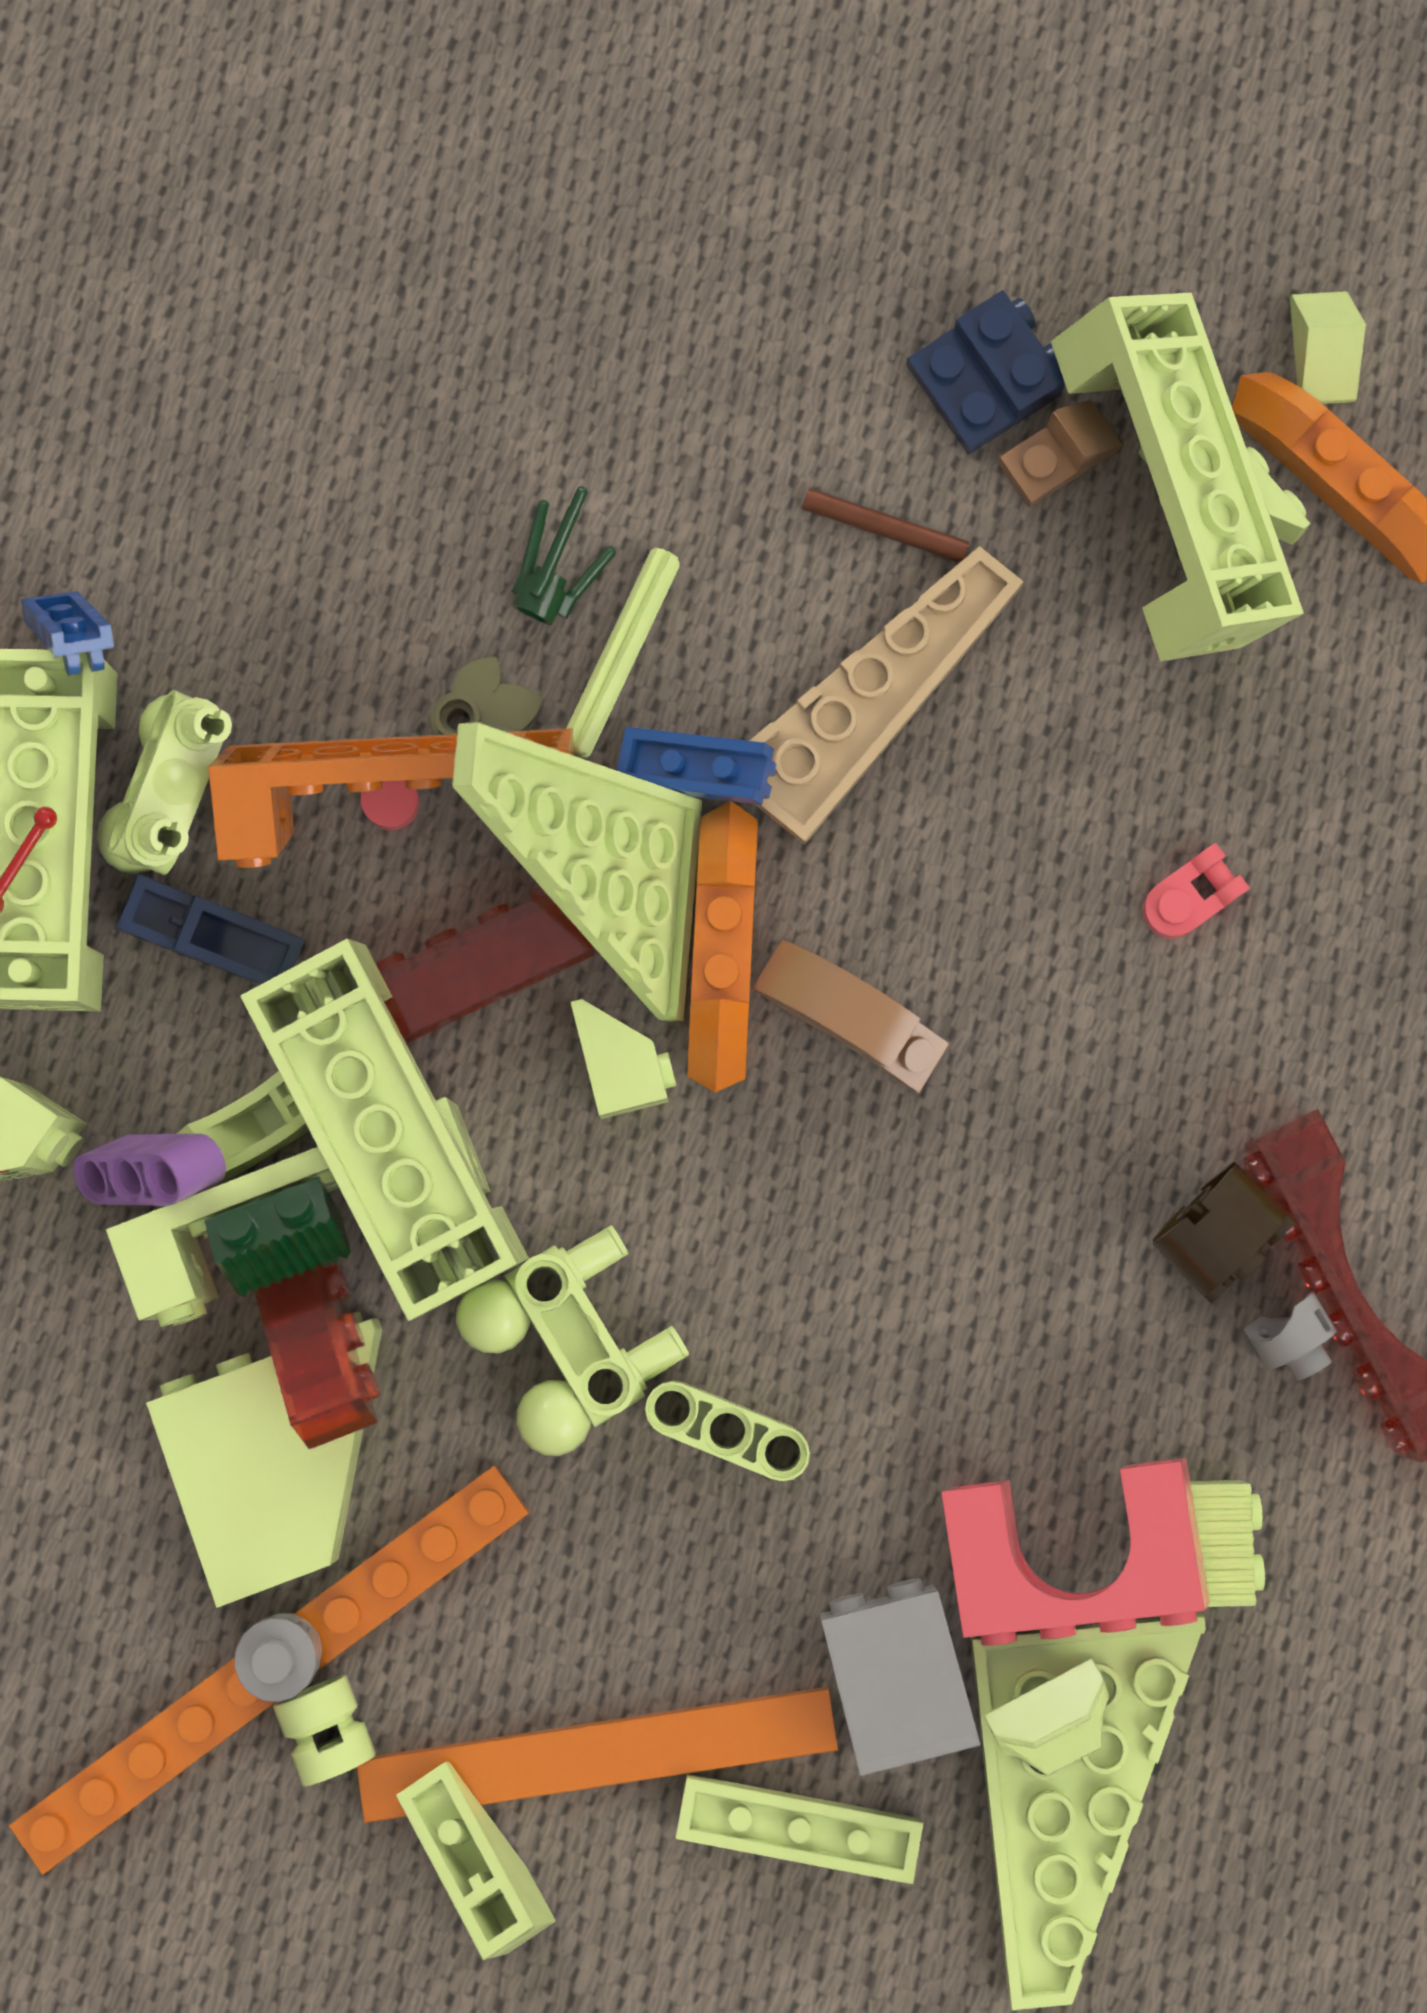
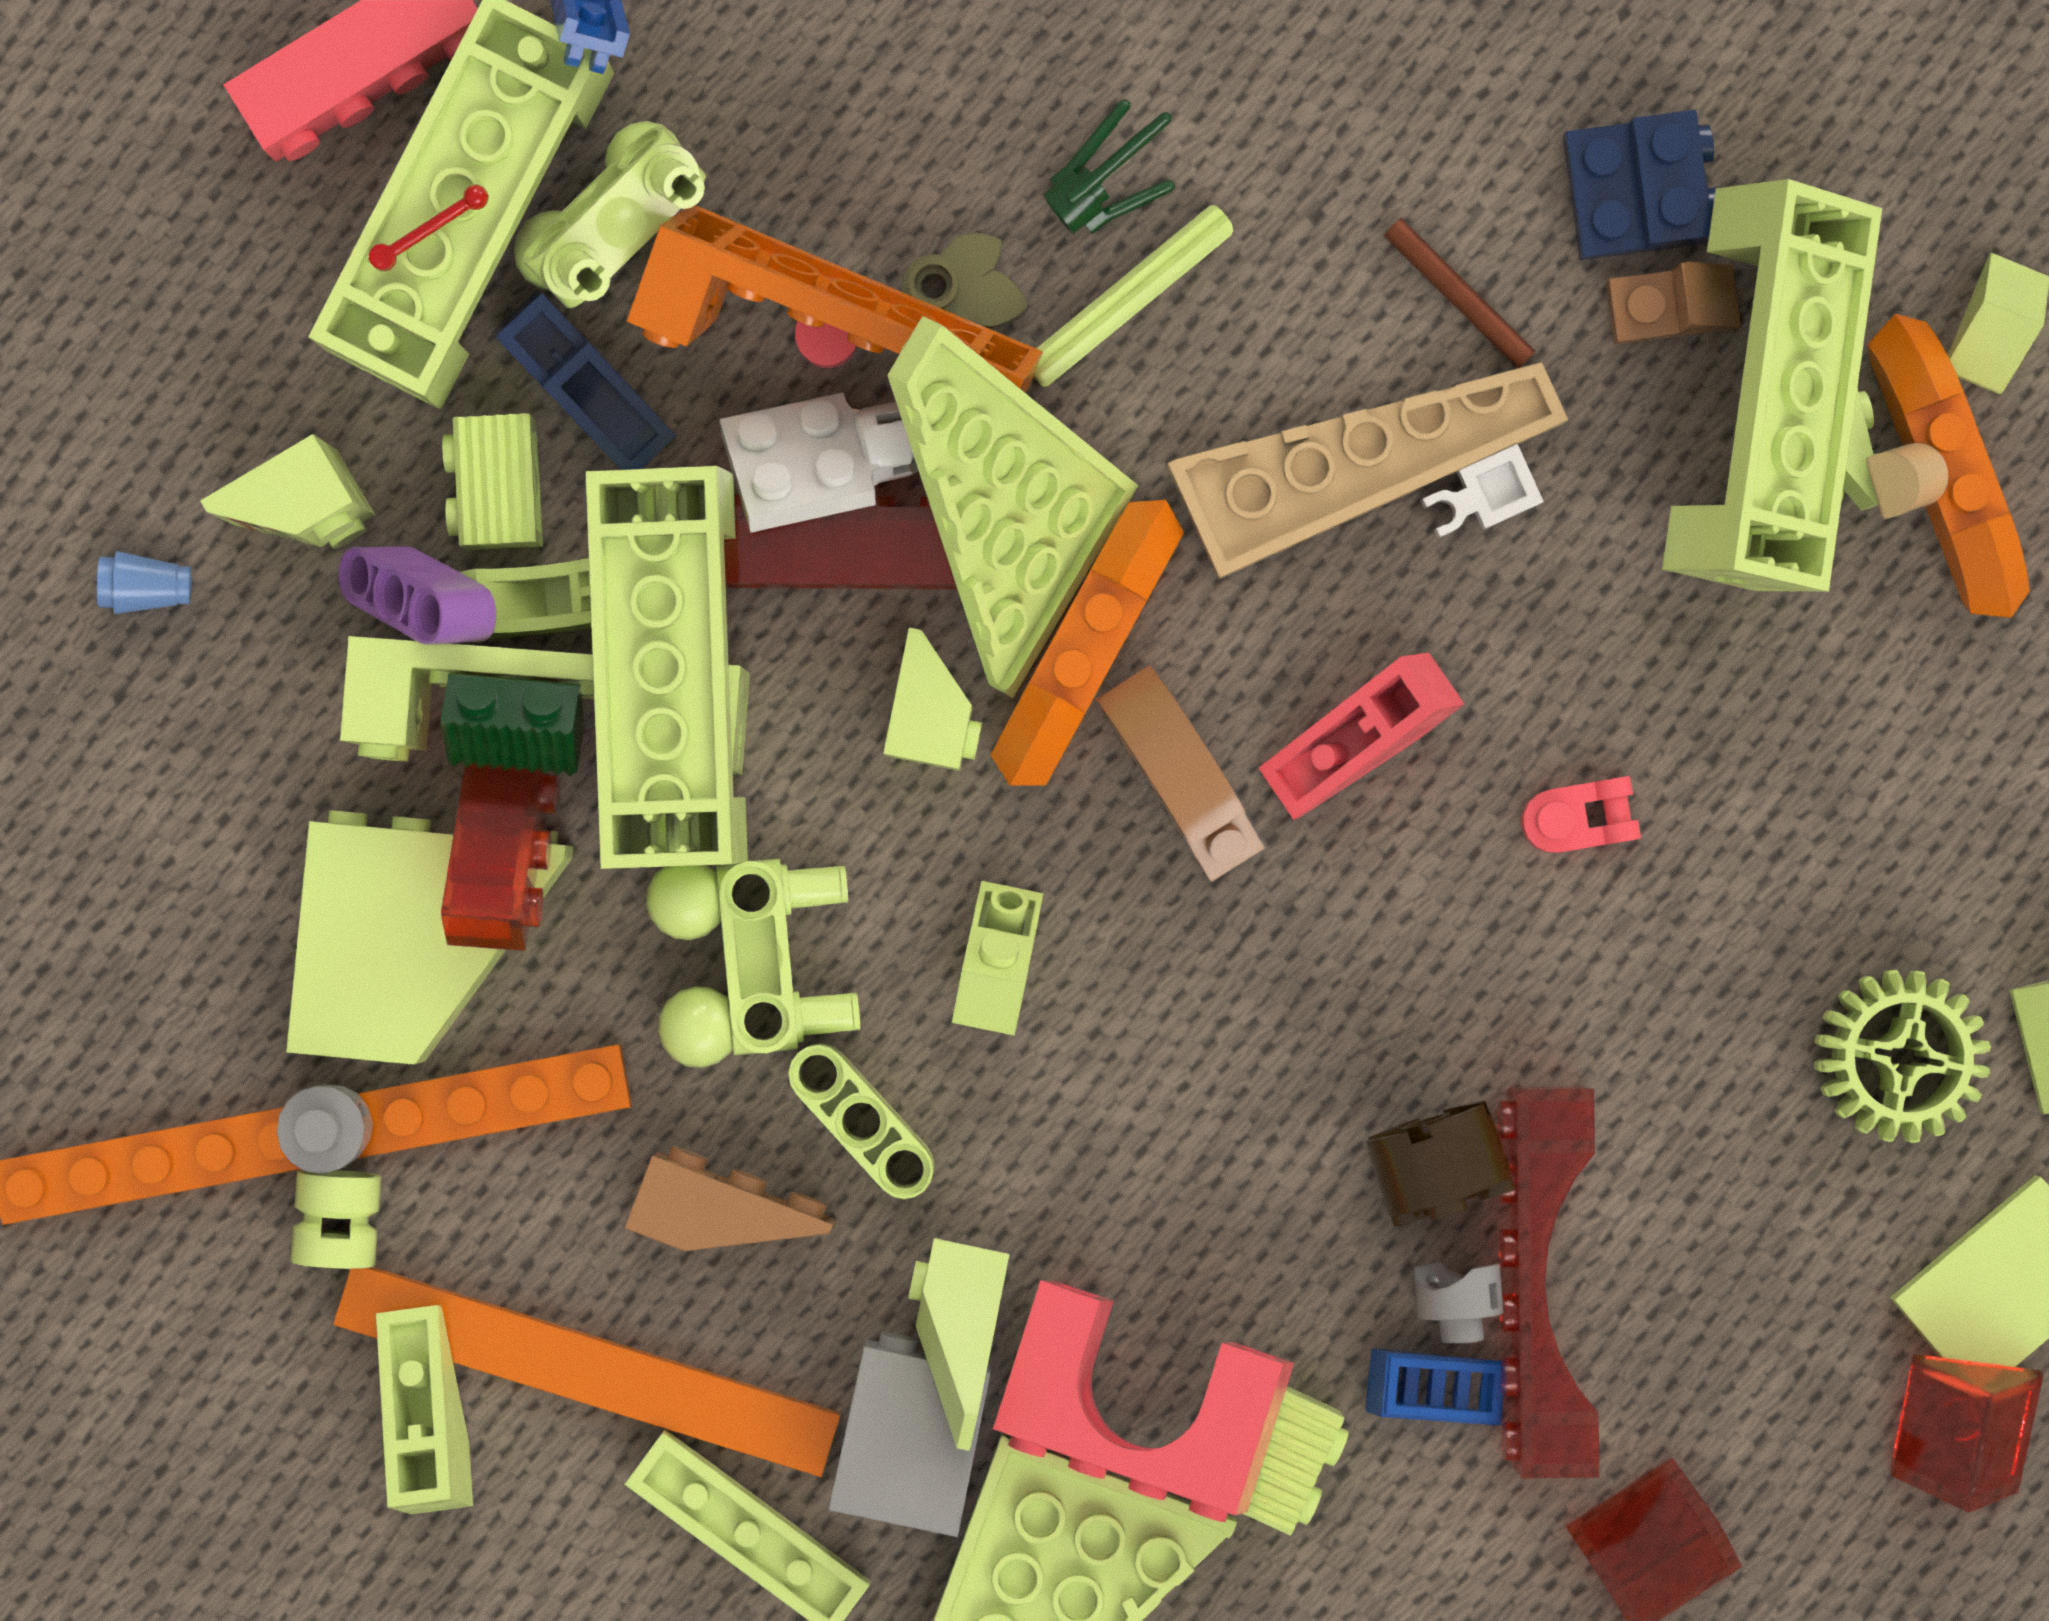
camera: 25 degrees right, 5 degrees up
(172, 1048) = (494, 482): none -> yellowish green brick
(428, 901) = (814, 458): none -> white plate
(630, 1570) = (704, 1210): none -> medium nougat slope
(699, 764) = (1148, 449): blue hinge -> none
(775, 1240) = (997, 958): none -> yellowish green slope
(891, 1564) = (957, 1325): none -> yellowish green slope
(982, 912) = (1362, 733): none -> coral slope
(990, 667) = (1492, 490): none -> white plate
(1054, 1720) = (1042, 1549): yellowish green slope -> none
(1267, 1440) = (1384, 1382): none -> blue slope
(1319, 496) = (1907, 478): none -> tan brick

